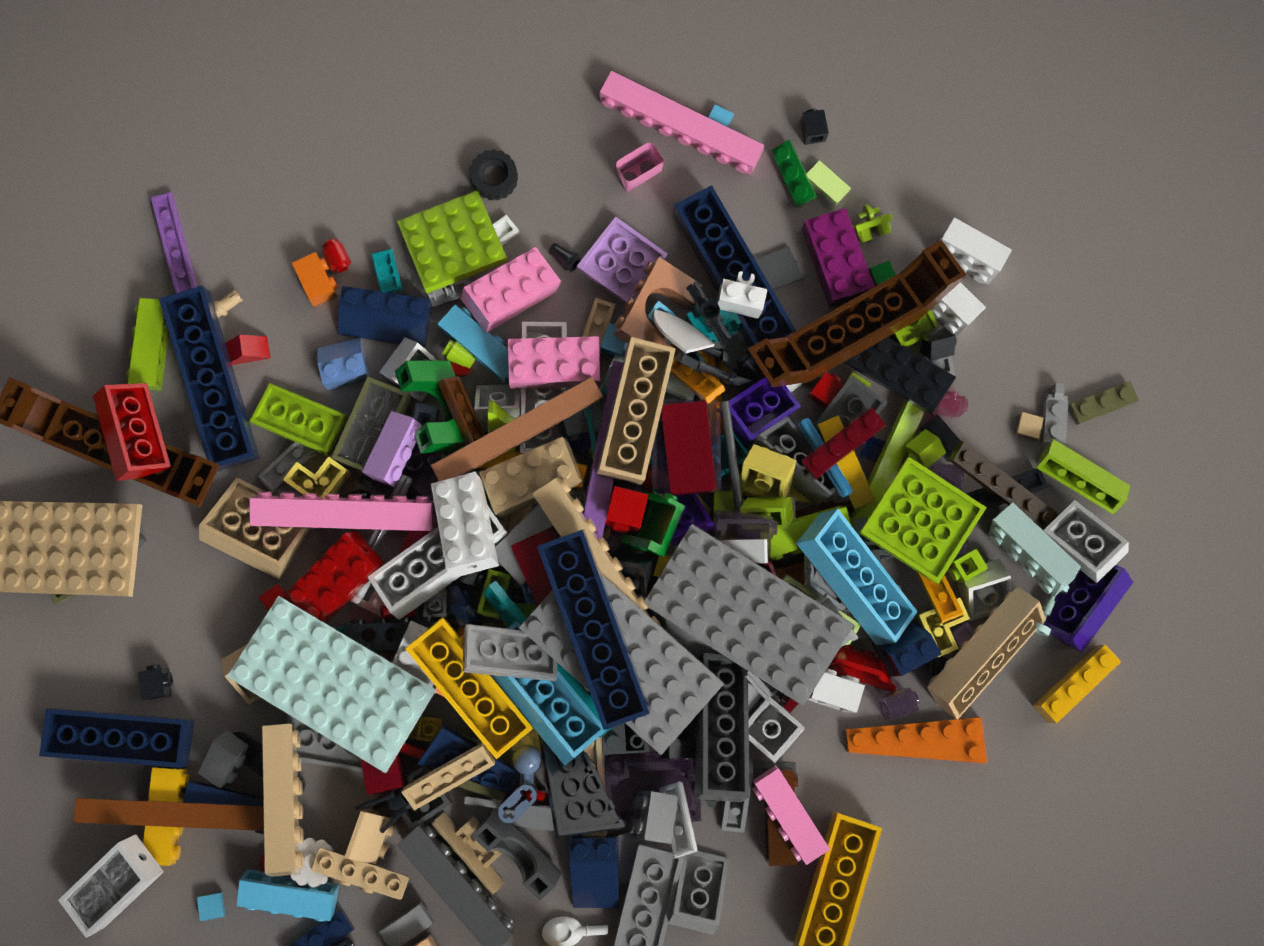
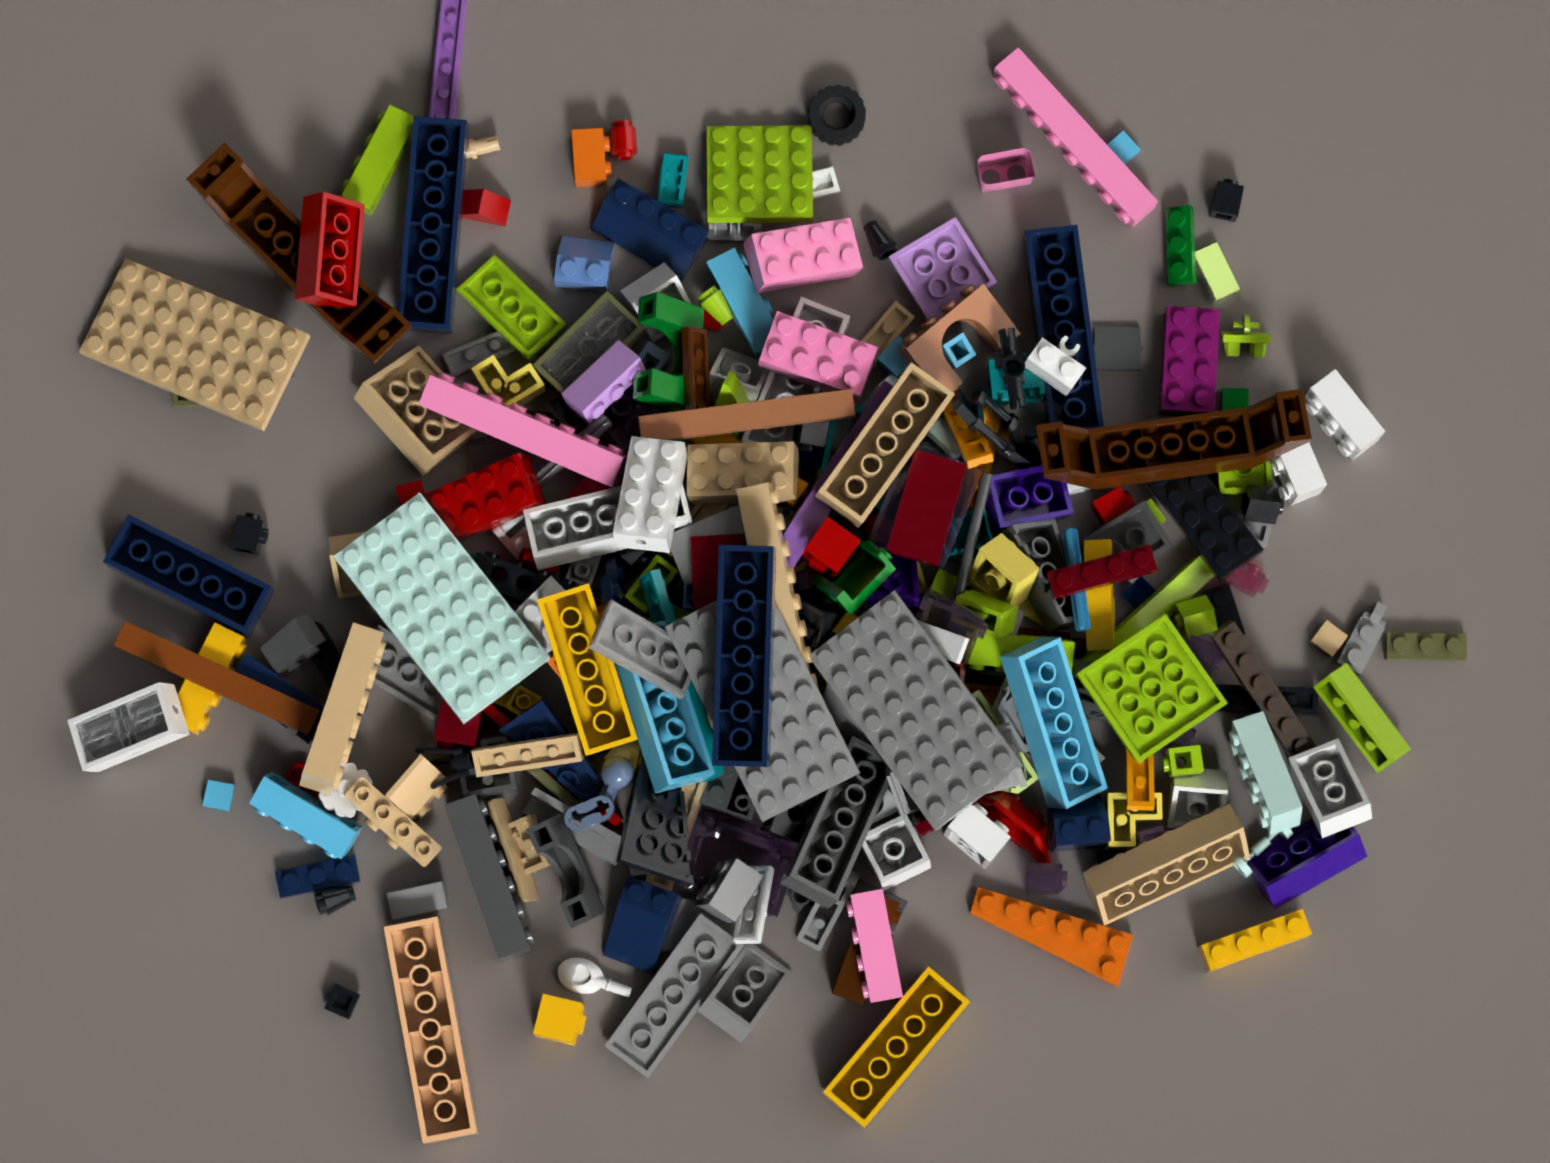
camera: 25 degrees right, 0 degrees up
(680, 333) = (971, 378): white shield -> none

